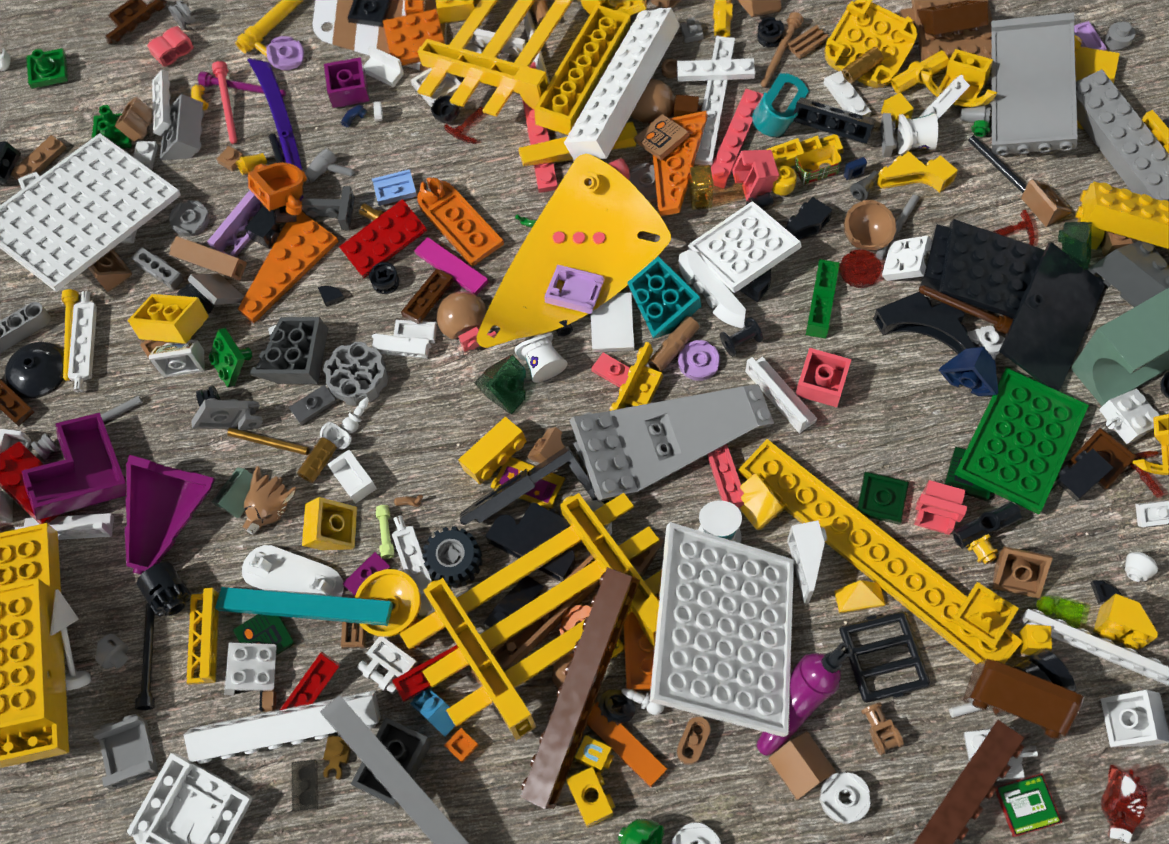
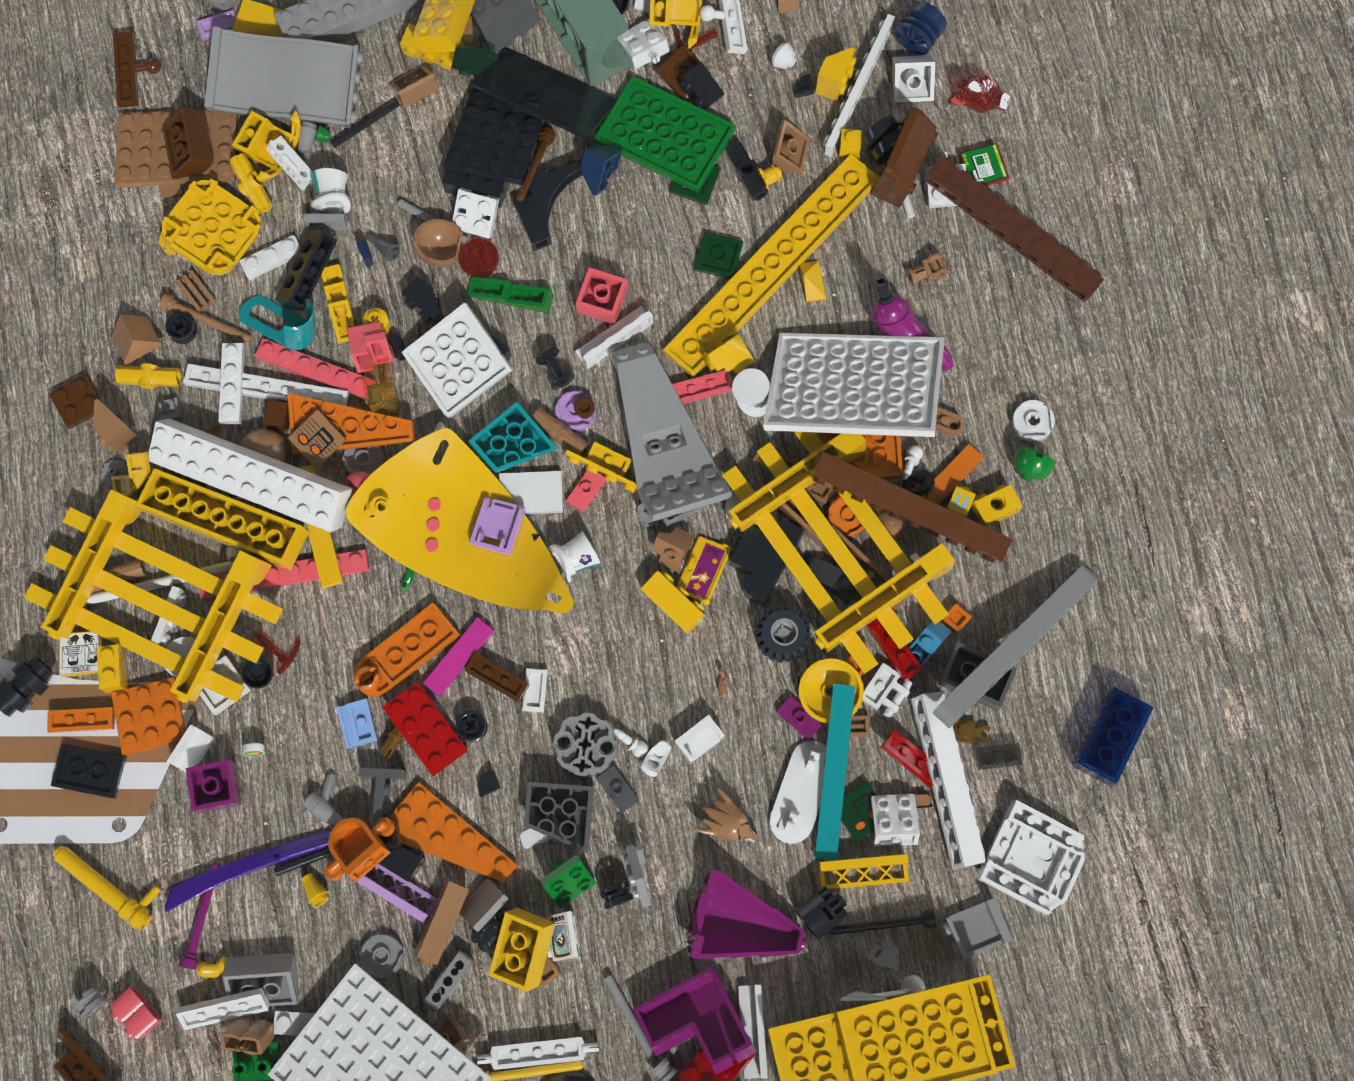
camera: 95 degrees left, 10 degrees up
(220, 71) = (182, 940): coral piece -> none
(229, 157) = (303, 917): medium nougat plate -> none
(233, 493) = (713, 854): sand green panel -> none
(268, 441) = (658, 832): pearl gold bar -> none
(285, 53) = (158, 868): lavender tile -> none
(317, 460) = (681, 777): pearl gold axle -> none
(329, 525) = (751, 757): yellow slope -> none
(352, 113) = (251, 779): dark blue arm -> none
(383, 515) = (737, 707): yellowish green bar -> none
(401, 346) = (554, 701): white piece -> none
(412, 561) = (789, 671): white plate -> none
(460, 313) = (518, 642): medium nougat cylinder -> none
(468, 339) = (549, 628): coral plate -> none
(504, 383) = (600, 594): clear green slope -> none
(522, 484) = (715, 570): black hinge -> none
(700, 365) = (584, 407): none -> reddish brown tile
(716, 293) = (507, 389): white brick -> none
(801, 765) = (961, 334): medium nougat slope -> none
(806, 548) = (781, 316): white slope -> none
(817, 156) = (350, 273): piece -> none
(859, 797) = (983, 313): white plate -> none
(862, 65) = (241, 236): pearl gold axle -> none
(897, 105) = (295, 208): yellow brick -> none
(907, 638) = (848, 245): black bar -> none
(910, 170) = (368, 204): yellow arch -> none
(940, 507) = (732, 206): coral plate -> none
(985, 614) = (831, 179): yellow plate -> none
(987, 338) = (562, 152): white animal -> none
(1025, 224) = (435, 106): clear red piece -> none
(1065, 610) = (821, 119): clear neon green plate -> none

